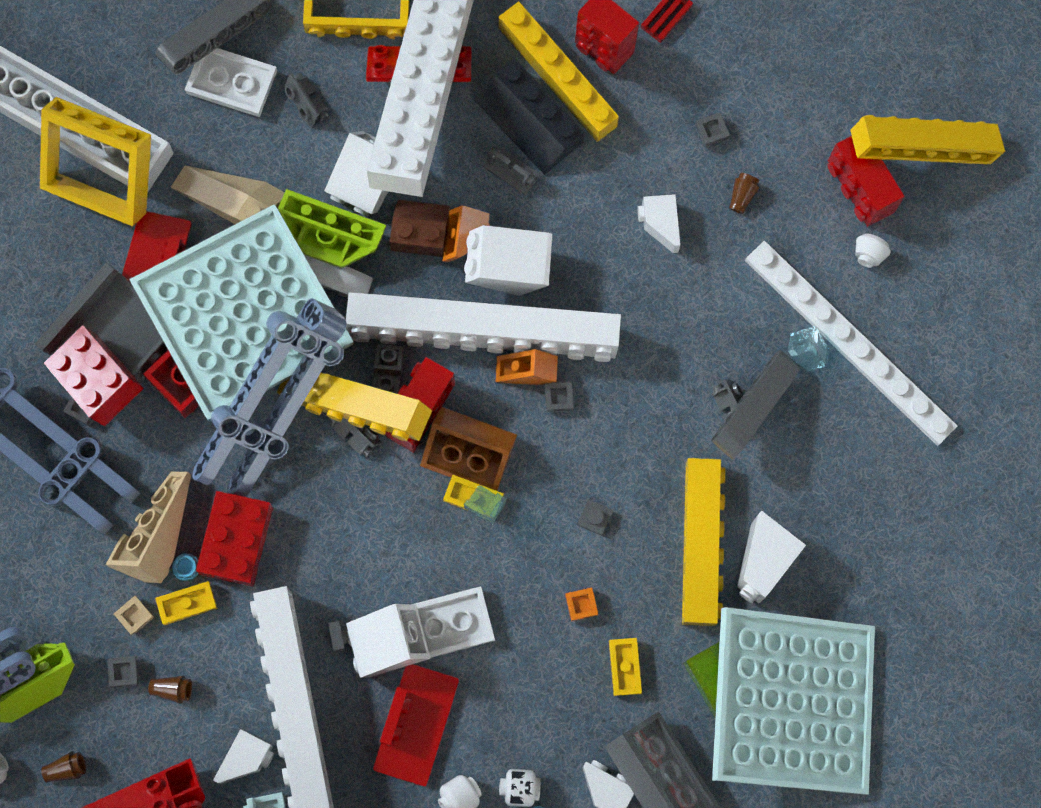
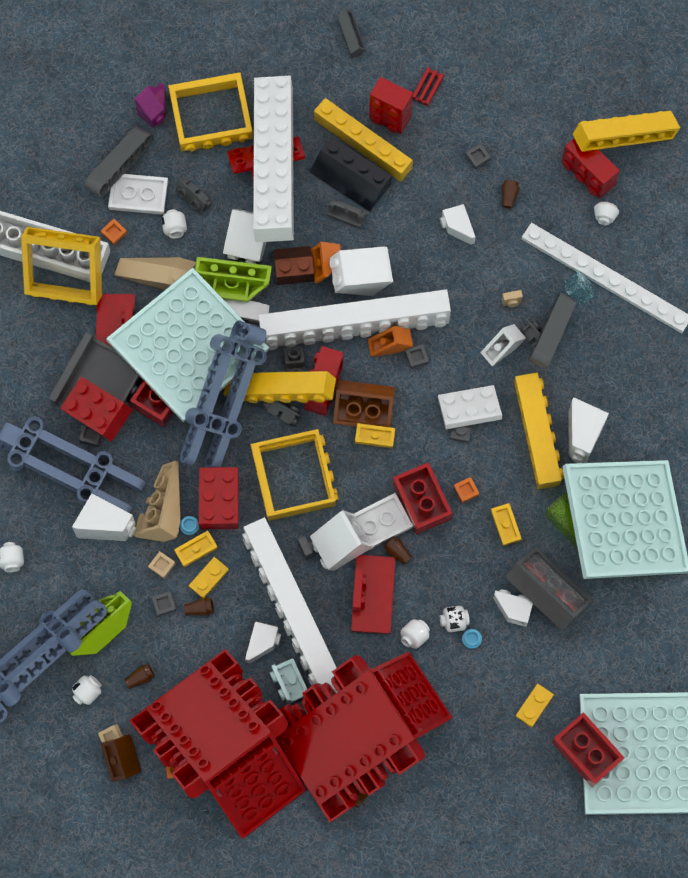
camera: 10 degrees left, 5 degrees down
(65, 536) = (103, 521): none -> white slope
(184, 126) = (113, 232): none -> orange plate
(194, 648) = (208, 577): none -> yellow plate
(268, 134) = (174, 224): none -> white head
(303, 480) = (286, 441): none -> yellow window
(465, 669) = (397, 550): none -> reddish brown cone
(485, 504) = (385, 437): clear light blue panel -> none
(516, 604) = (422, 498): none -> red brick
(614, 486) = (469, 407): none -> white plate
(682, 407) = (503, 344): none -> white slope
(711, 344) = (512, 298): none -> tan plate

